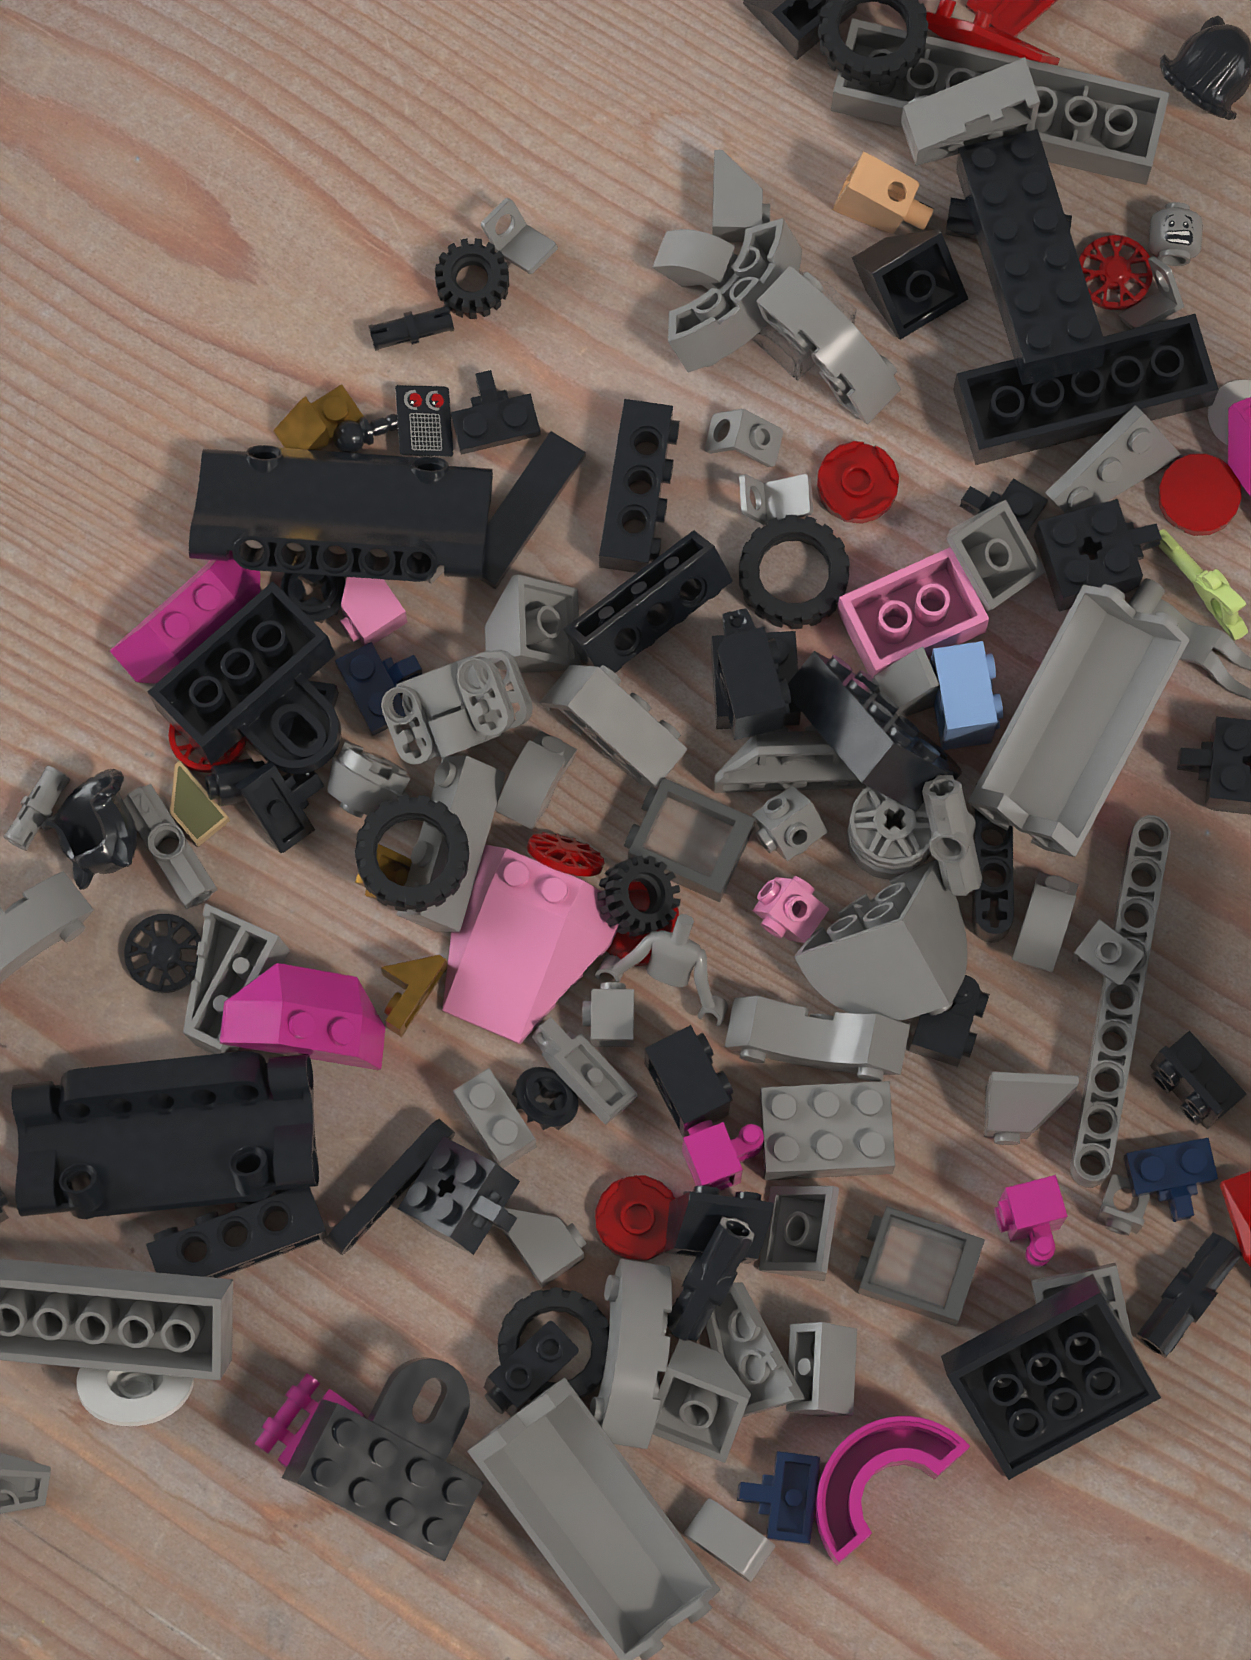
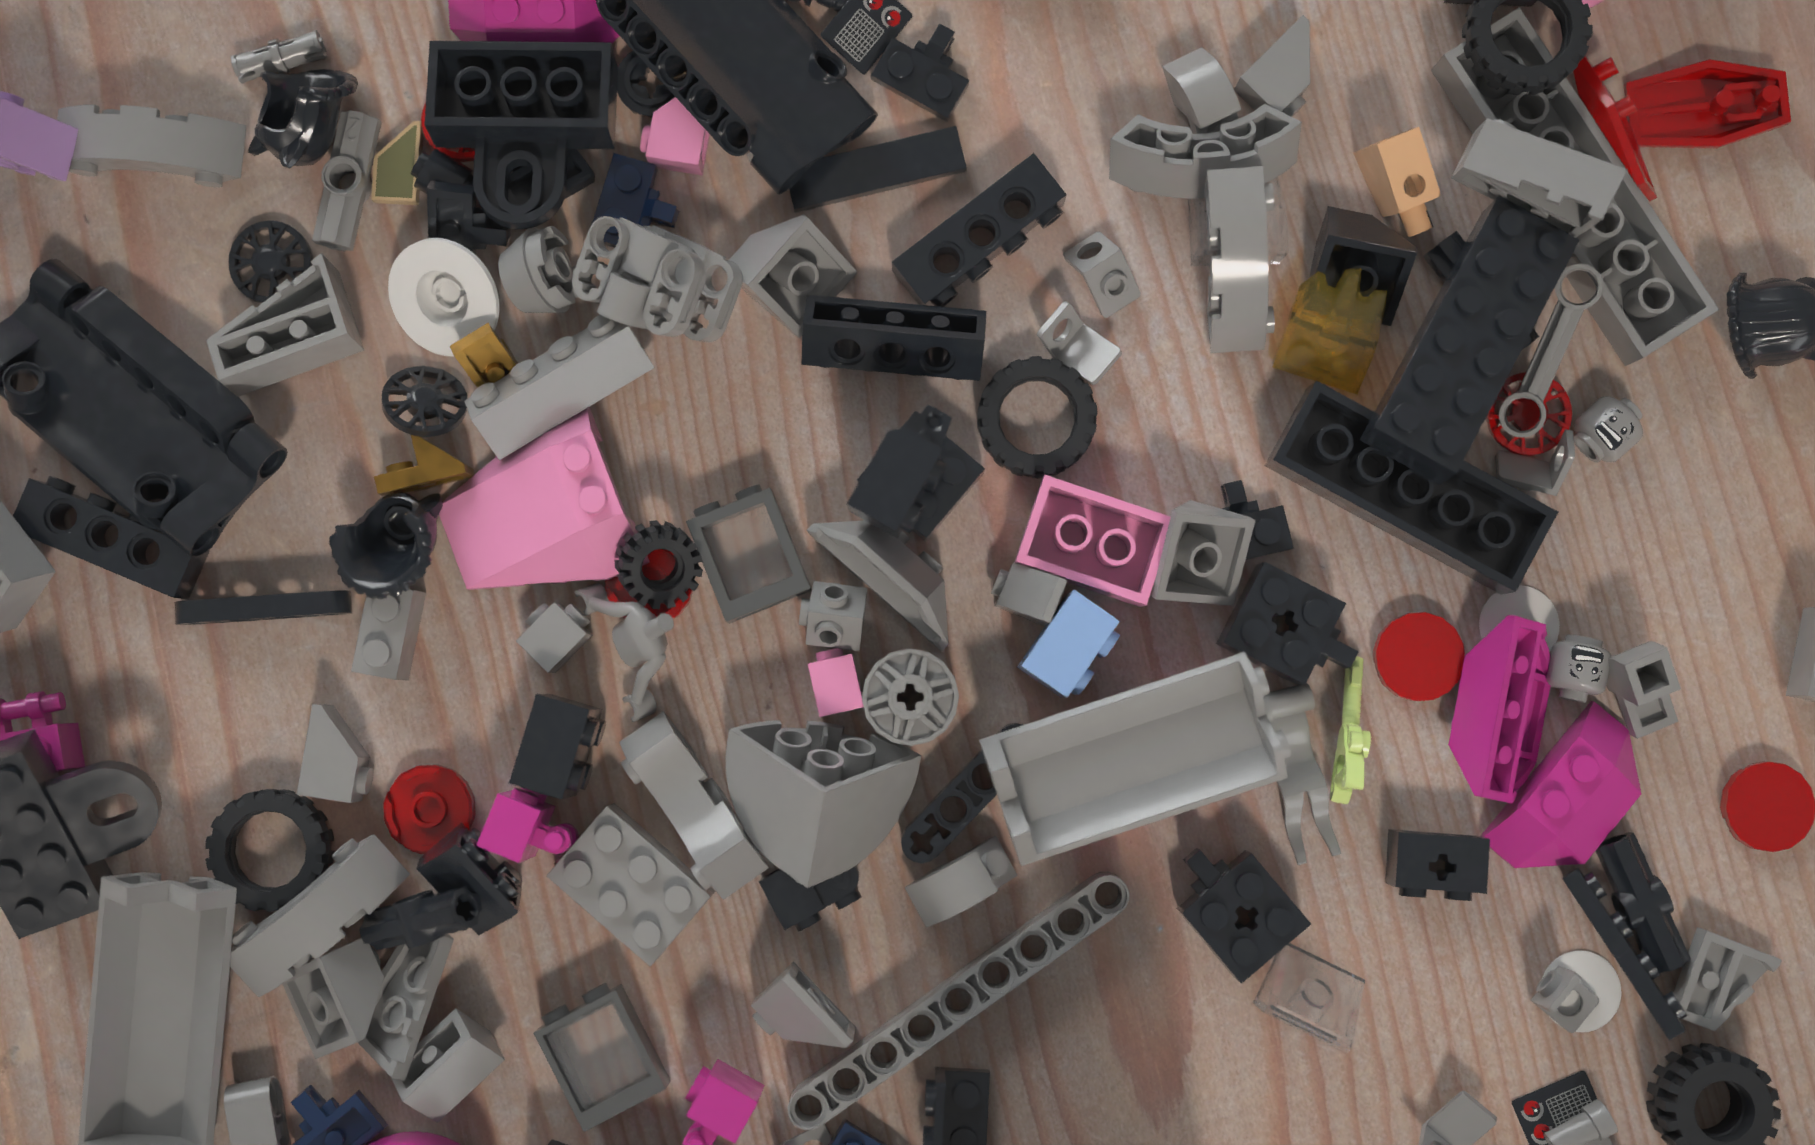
camera: 45 degrees right, 10 degrees up
(306, 1013) = (311, 417): dark pink wedge -> none
(311, 859) = (441, 293): none -> white hat
(368, 942) = (424, 401): none -> black wheel
(399, 811) = (476, 327): black tyre -> none
(443, 1052) = (387, 545): none -> black hair
(460, 1196) = (296, 671): black hinge -> none
(529, 1369) = (228, 852): black bracket -> none
(534, 779) = (674, 392): light grey brick -> none
(550, 1085) = (459, 641): black gear -> none
(565, 854) = (637, 476): red wheel -> none
(584, 1070) = (494, 660): light grey hinge -> none
(616, 722) = (775, 408): light grey wedge -> none
(789, 909) = (770, 684): bright pink brick -> none
(800, 1231) = (537, 940): light grey slope -> none
(832, 869) = (835, 682): none -> bright pink brick
(857, 482) = (1158, 392): red tile -> none
(866, 731) = (951, 620): black brick -> none
(934, 336) = (1332, 332): none -> clear yellow plate
(952, 835) = (939, 755): light grey piece -> none
(1088, 217) = (1550, 351): none -> light grey piece
(1108, 953) = (980, 958): light grey bracket -> none
(1114, 464) = (1371, 570): light grey wing -> none

